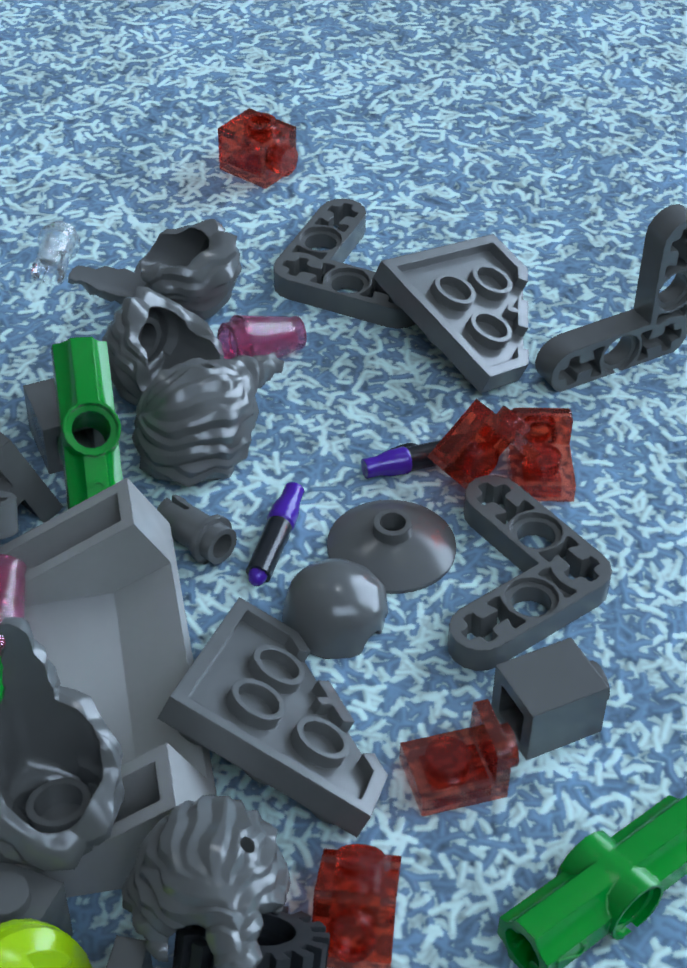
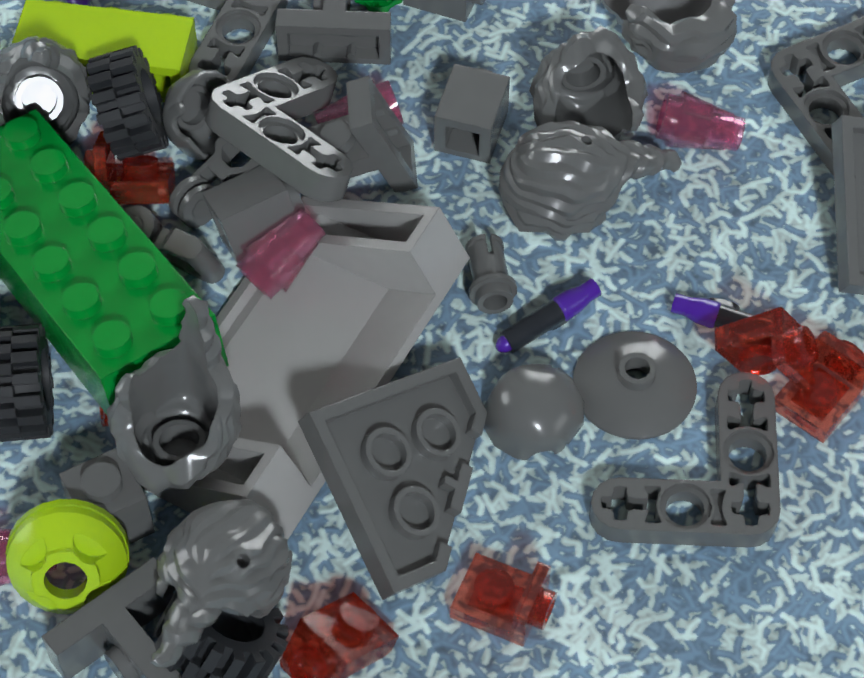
camera: 40 degrees right, 15 degrees up
(86, 400) = (474, 109): green piece -> none
(550, 697) = (615, 596): dark grey brick -> none

